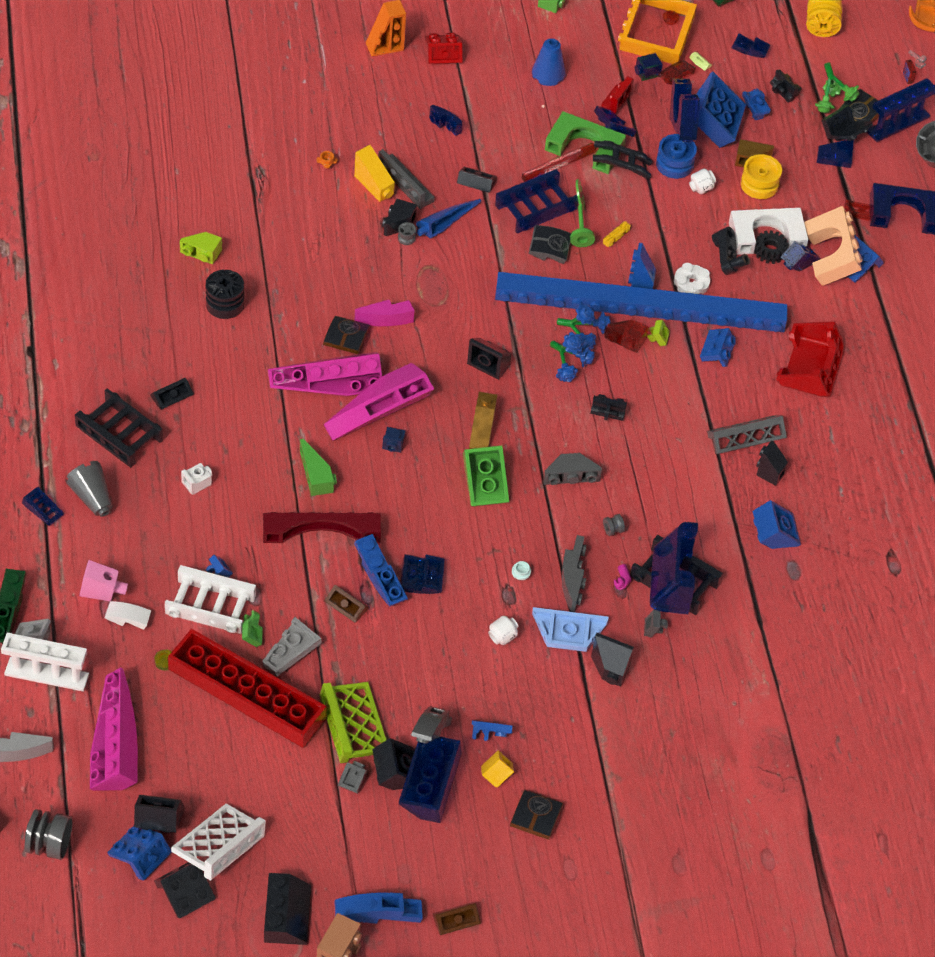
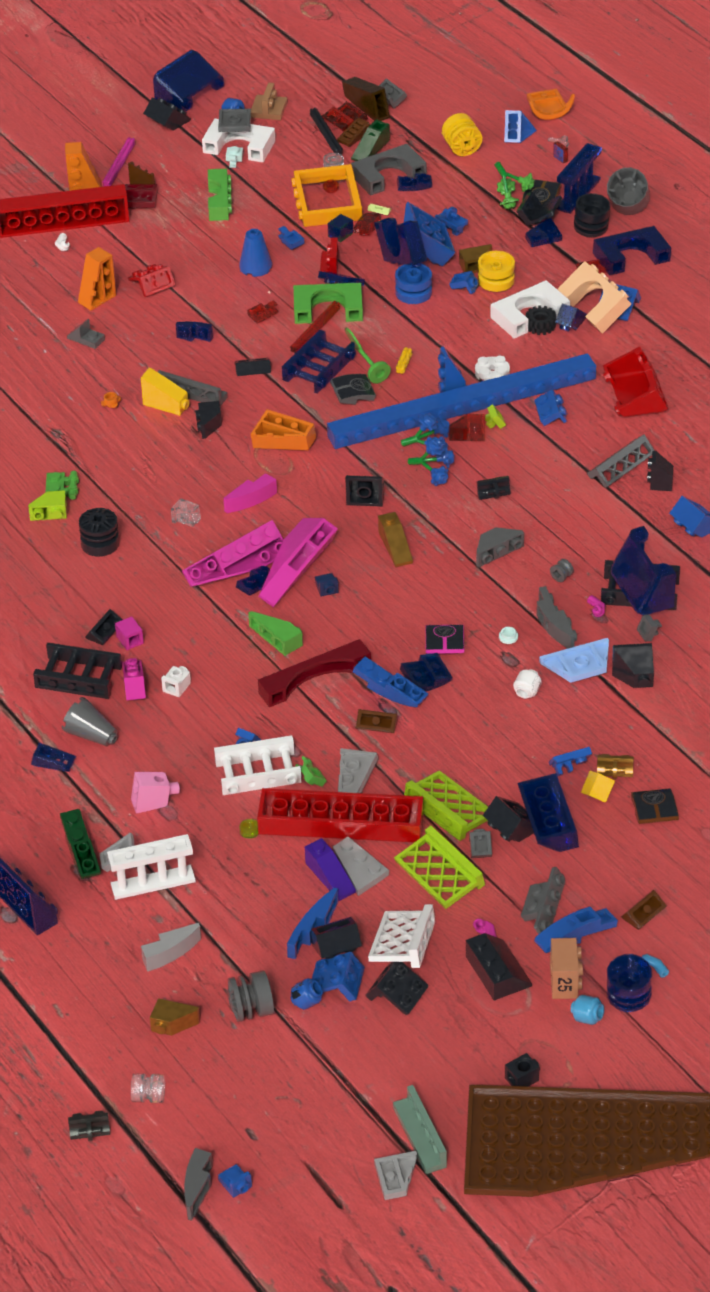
camera: 20 degrees left, 10 degrees down
(100, 855) = (306, 993): none -> blue head
(115, 738) = (250, 902): dark pink wedge -> none
(124, 612) = (187, 806): white slope -> none
(158, 782) = (317, 916): none -> blue slope
(160, 459) = (133, 679): none -> dark pink slope
(187, 409) = (129, 633): none -> dark pink brick
(203, 738) = (327, 868): none -> dark purple slope
(225, 224) = (57, 481): none -> bright green plate
(234, 745) = (359, 865): none -> light grey wing
(302, 866) = (483, 926): none -> dark pink arm
(315, 307) = (185, 512): none -> clear brick
(317, 776) = (454, 860): none -> lime fence
(330, 407) = (254, 582): none -> clear blue slope
(346, 335) = (227, 523): black slope -> none
(348, 82) = (86, 336): none -> dark grey slope
(371, 864) = (543, 901): none -> dark grey bracket
(407, 233) = (223, 428): dark grey wheel -> none
(430, 724) = (525, 770): dark grey slope -> none
(441, 220) = (245, 408): blue piece -> none
(453, 263) = (282, 432): none -> orange wedge
(461, 547) = (444, 639): none -> black slope
(486, 476) = (426, 577): bright green slope -> none
(519, 125) = (262, 312): none -> clear red plate
(527, 755) = (615, 765): none -> pearl gold hips
(596, 59) = (290, 239): none -> blue plate
(614, 159) = (364, 303): black piece -> none
(702, 181) = (448, 293): white head -> none
(726, 242) = (501, 327): black beam -> none
(727, 173) = (464, 280): none -> blue bracket
(752, 13) = (401, 157): none -> dark grey arch
(784, 86) = (465, 200): black hips -> none
(885, 27) = (517, 127): none -> blue slope
(890, 155) = (591, 215): none -> black wheel

